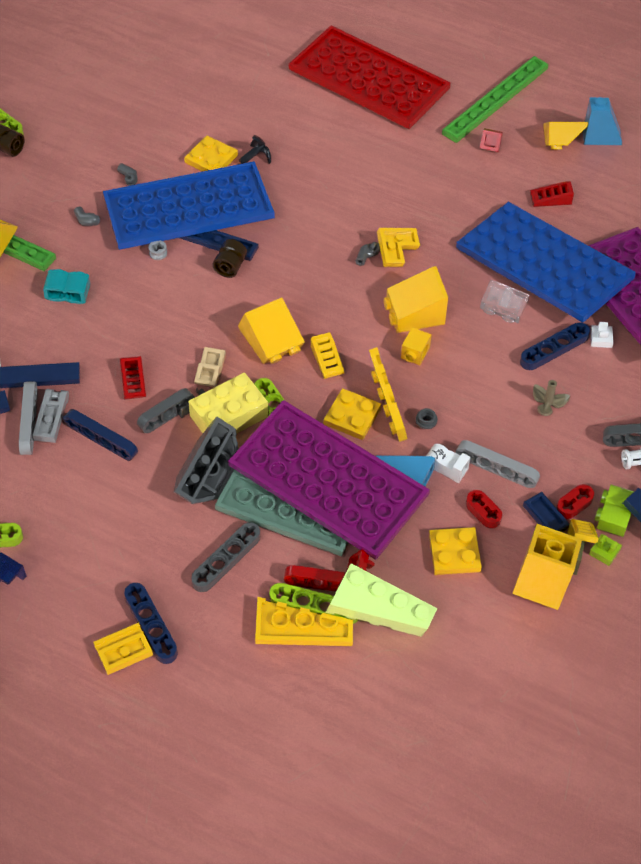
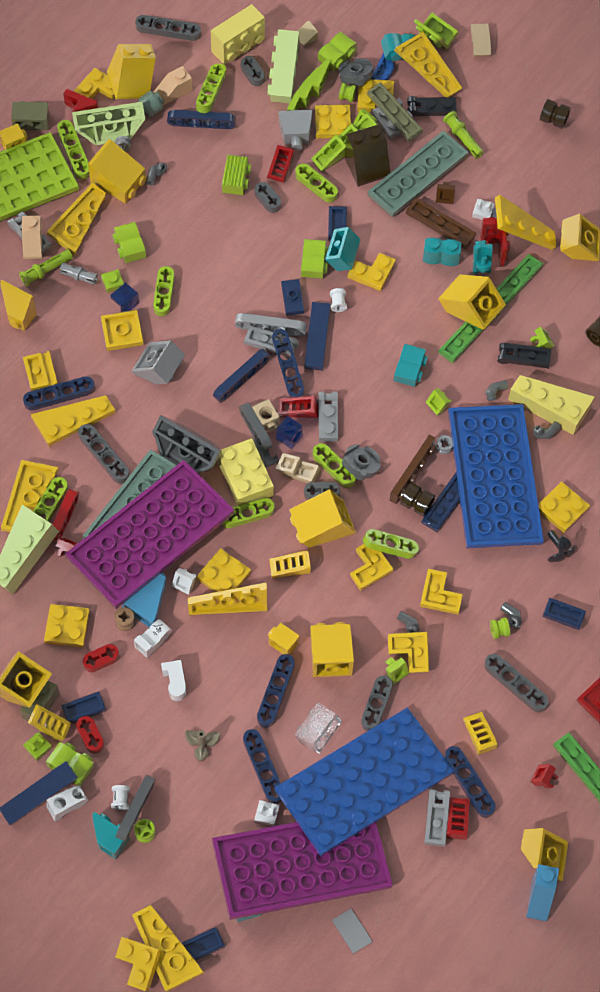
camera: 100 degrees right, 10 degrees up
(20, 184) = (543, 338): none -> lime tile
(32, 690) = (19, 306): none -> yellow slope
(42, 198) = (524, 355): none -> black plate
(52, 569) = (122, 330): none -> yellow plate
(80, 387) = (286, 364): none -> dark blue beam
(93, 520) = (159, 362): none -> light grey slope
(98, 169) = (552, 402): none -> light yellow wedge
(109, 257) = (438, 401): none -> lime tile
(148, 349) = (328, 416): none -> light grey plate
(149, 398) = (266, 409): none -> tan brick
(169, 376) = (289, 432): none -> clear blue brick
(189, 608) = (66, 420): none -> yellow wing
(193, 268) = (417, 463): none -> reddish brown plate
(194, 310) = (358, 469): none -> dark grey plate
(198, 345) = (332, 457): none -> lime beam
(230, 343) = (320, 487): none -> dark grey beam
(289, 277) = (382, 546): none -> lime beam
(312, 285) = (375, 567): none -> yellow plate
(325, 143) = (564, 613): none -> dark blue plate
(330, 237) = (436, 597): none -> yellow plate
(335, 178) = (513, 614): none -> dark grey arm
(354, 184) = (499, 628): none -> lime wheel
(372, 442) = (183, 580): none -> white tile
(407, 171) = (518, 680): none -> dark grey beam
(420, 254) = (396, 669): none -> lime tile
(427, 414) = (203, 627): dark grey plate -> none
(433, 499) = (125, 623): none -> medium nougat wheel
(471, 345) = (278, 691): none -> dark blue beam
(473, 180) = (480, 748): none -> yellow slope
(474, 264) = (386, 692): none -> dark grey beam
(489, 431) = (177, 685): none -> white leg
(497, 464) = (140, 678): light grey beam -> none
(515, 193) = (466, 783): none -> dark blue beam
(558, 208) = (437, 818): none -> light grey plate

